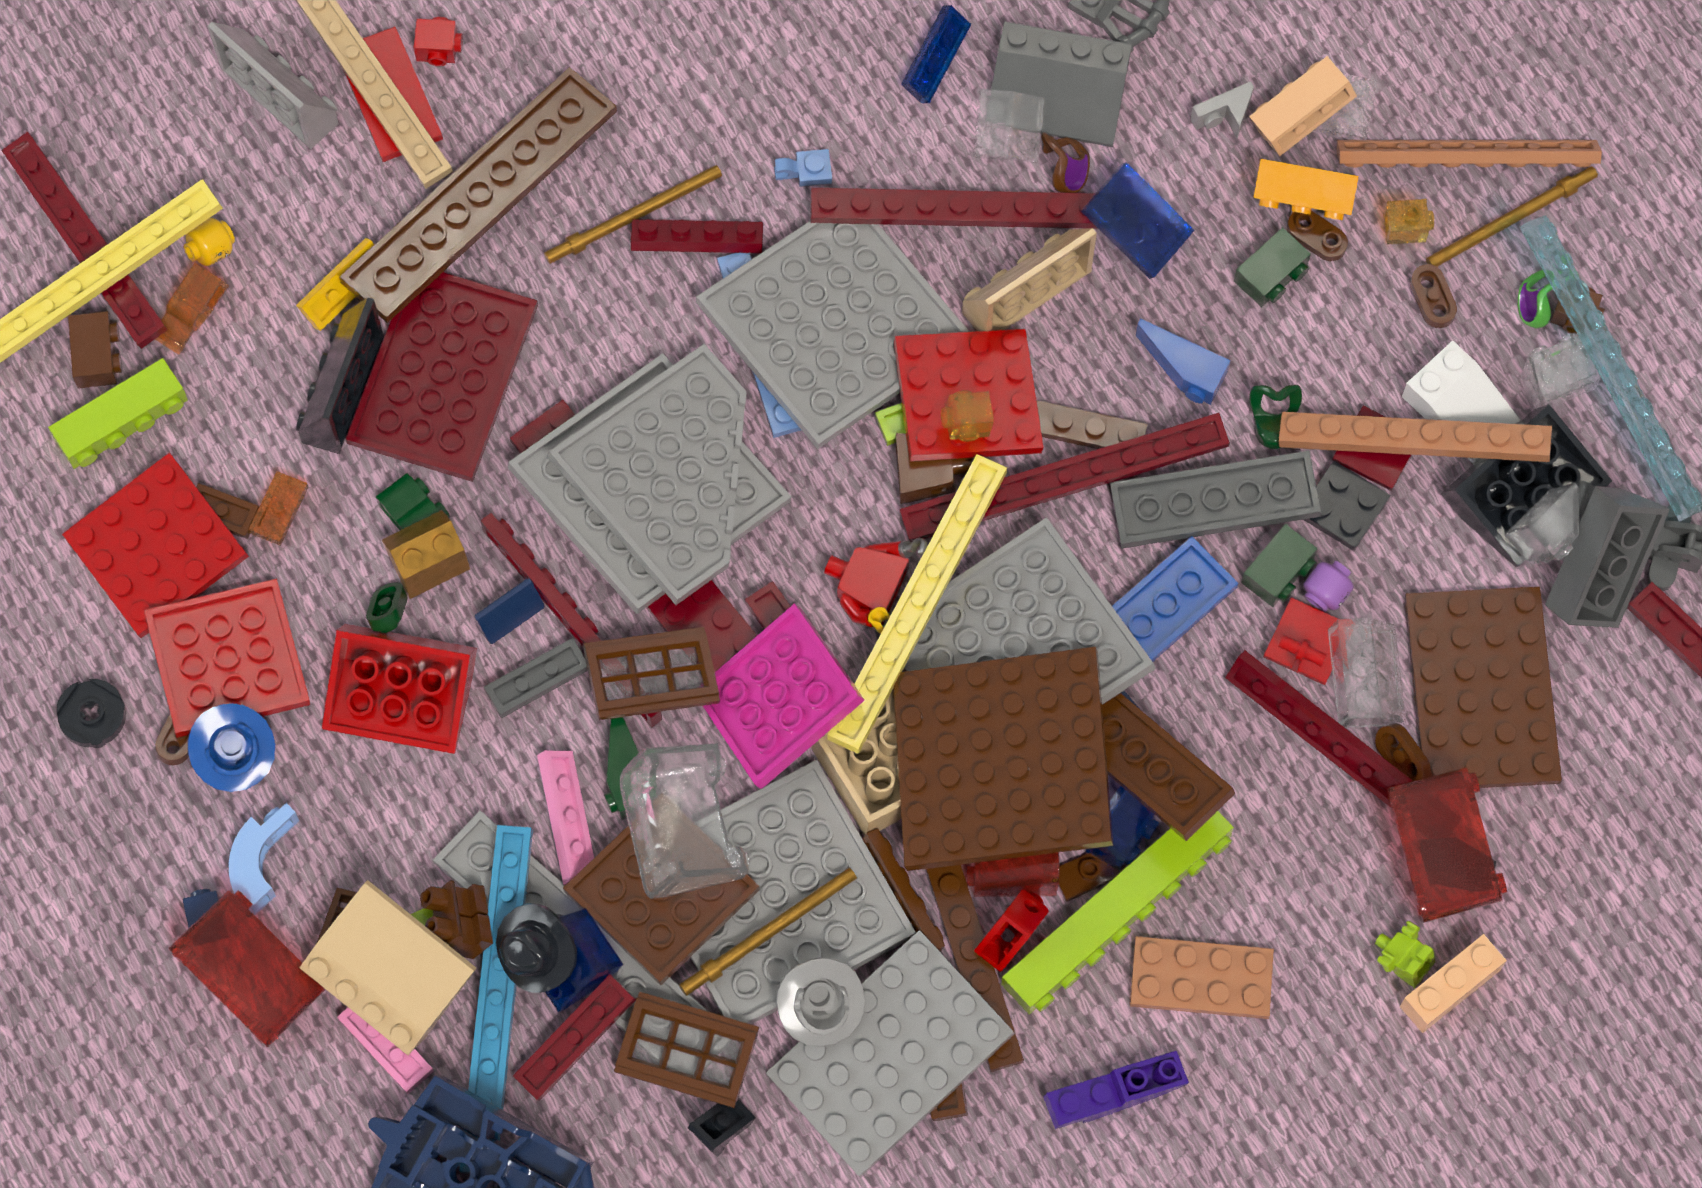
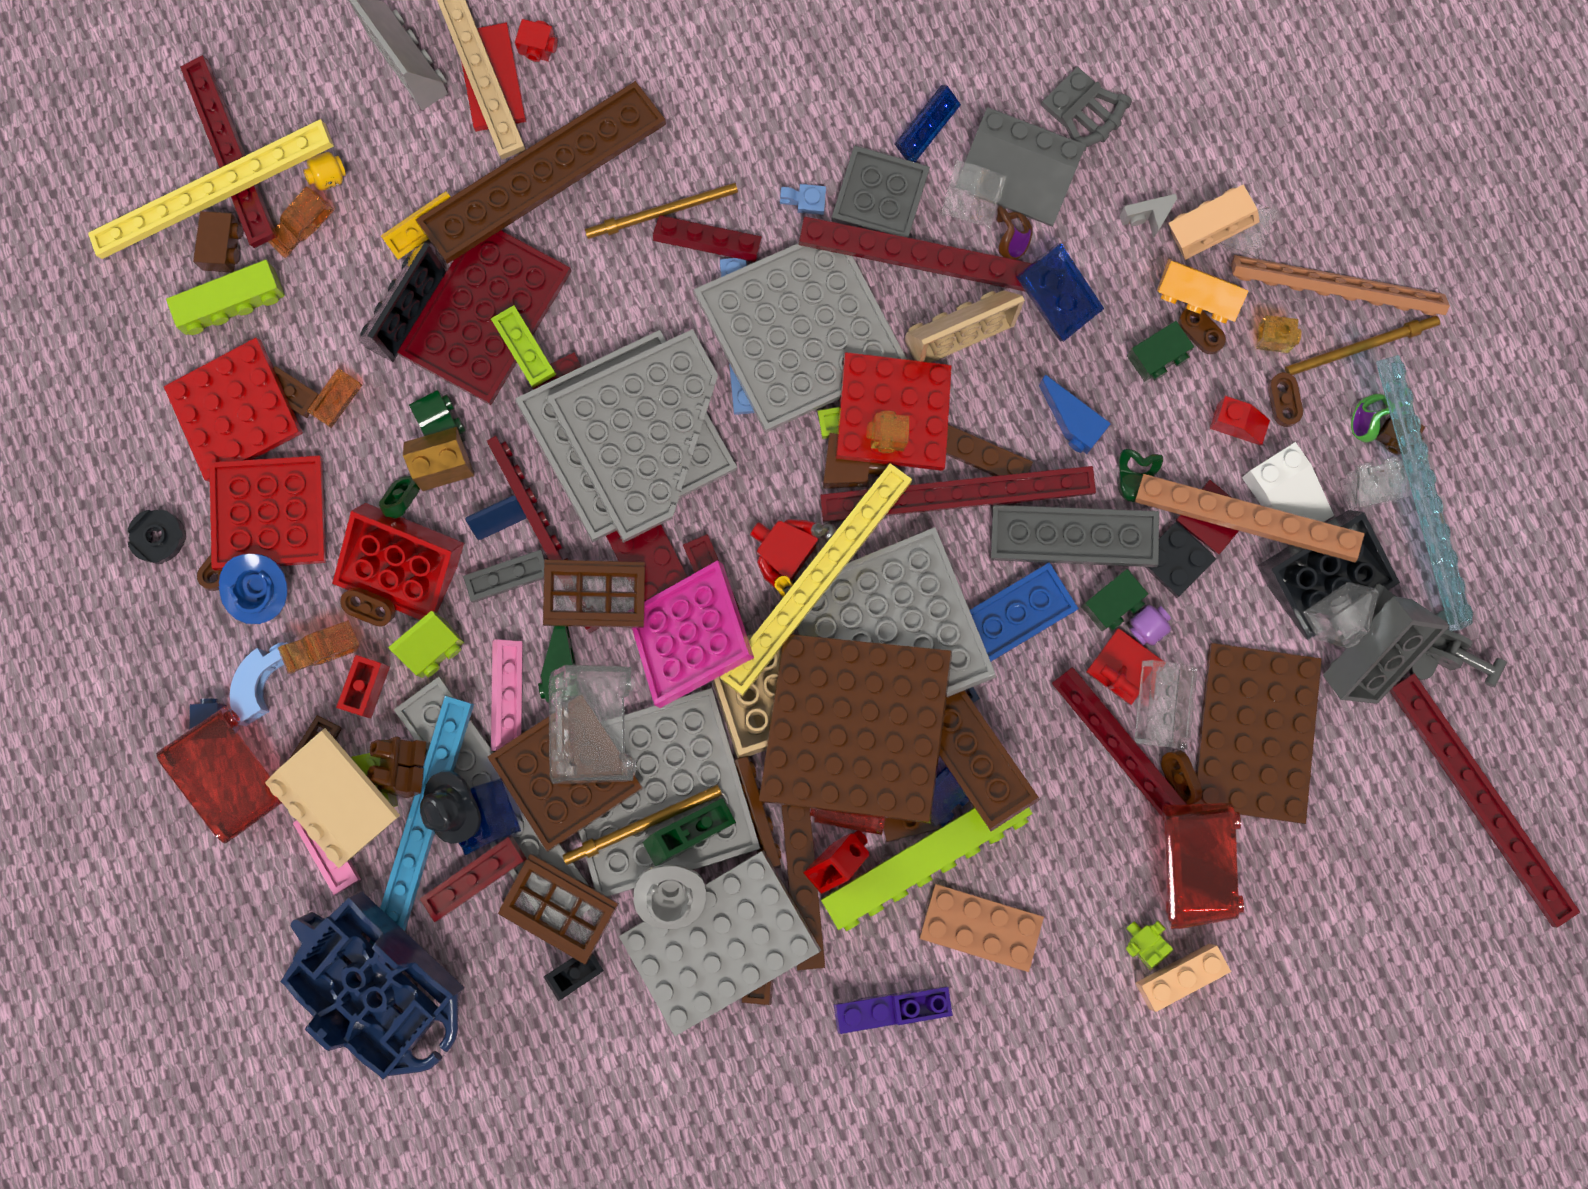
camera: 15 degrees right, 10 degrees up
(329, 801) = (319, 647): none -> clear orange piece
(374, 747) = (369, 607): none -> reddish brown plate
(391, 838) = (363, 686): none -> red brick
(460, 774) = (427, 645): none -> lime slope
(502, 402) = (523, 346): none -> lime plate
(826, 926) = (688, 832): none -> dark green slope
(896, 144) = (880, 192): none -> dark grey plate
(1385, 330) = (1240, 420): none -> red slope

